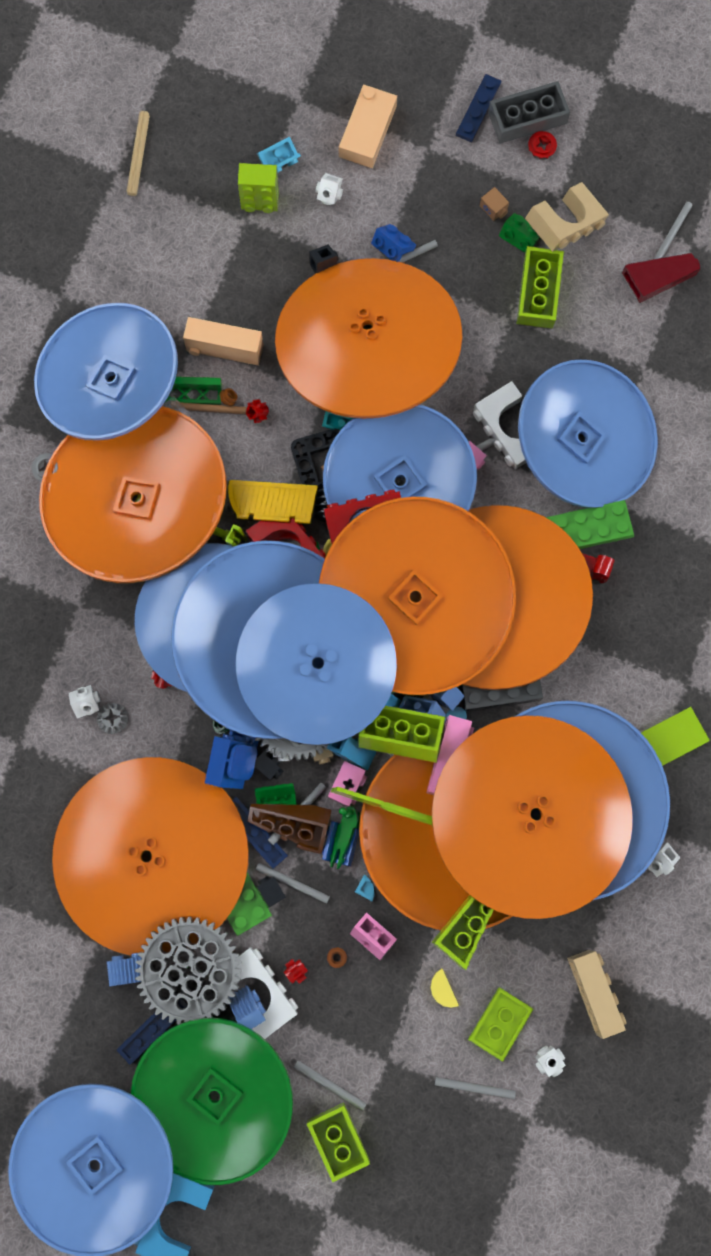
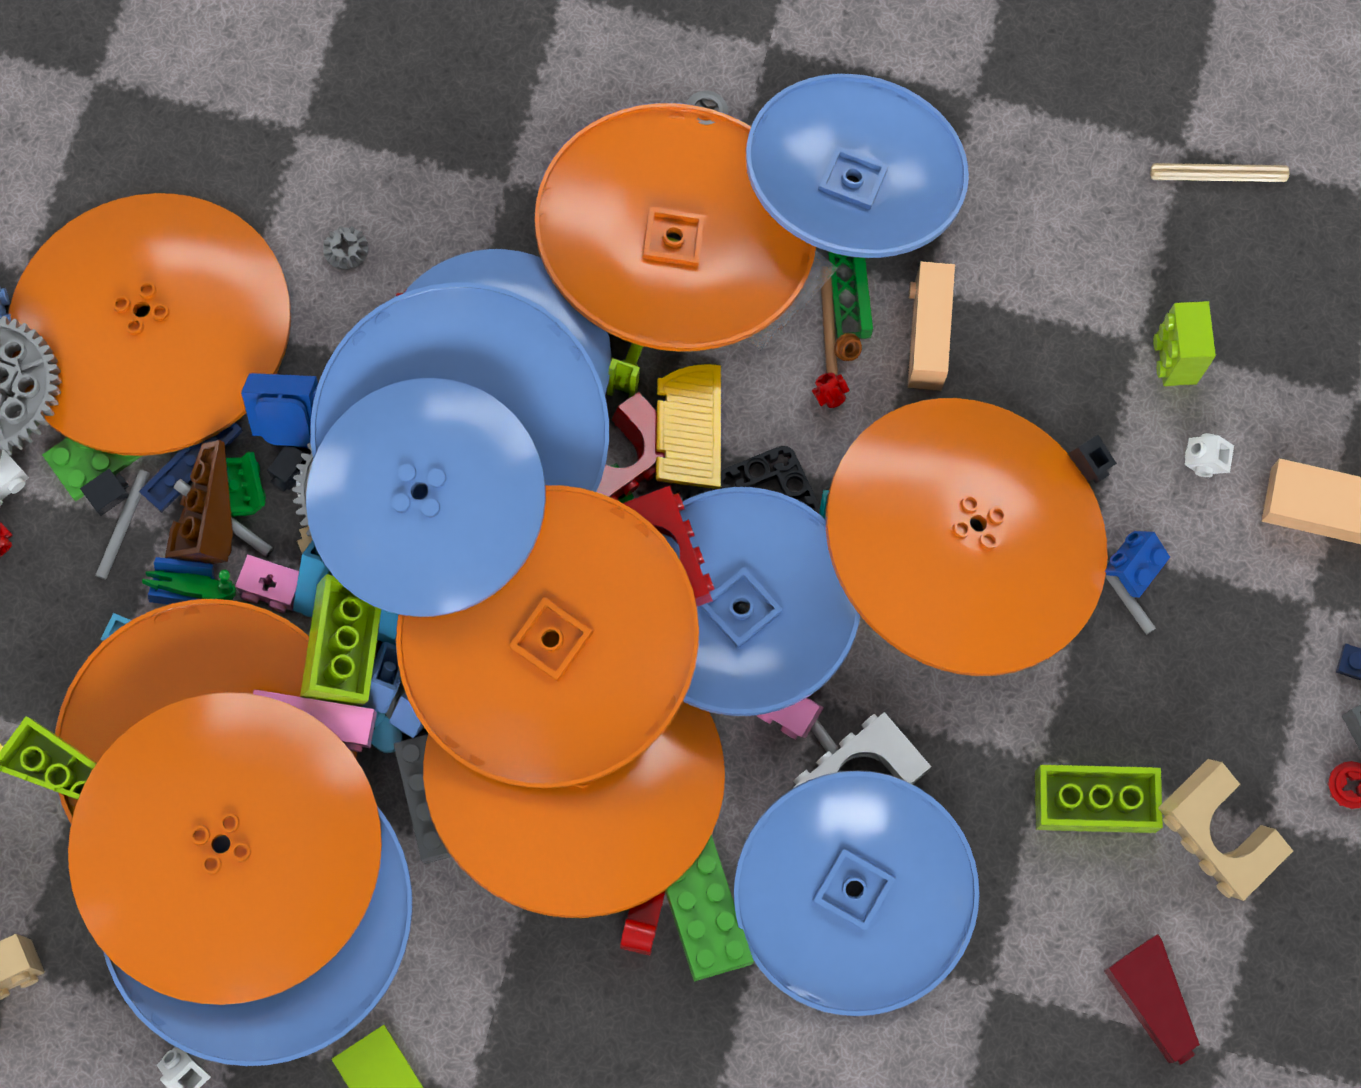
camera: 85 degrees right, 5 degrees down
(84, 701) = (363, 204): white brick -> none
(279, 154) = (1252, 374): medium azure bracket -> none
(336, 964) = (11, 591): dark orange plate -> none
(373, 936) = (46, 642): bright pink brick -> none
(384, 805) = (231, 613): lime piece -> none
(494, 204) = (1231, 715): medium nougat brick -> none
(519, 233) = (1187, 755): green bracket -> none
(662, 250) = (1238, 1016): light grey piece -> none

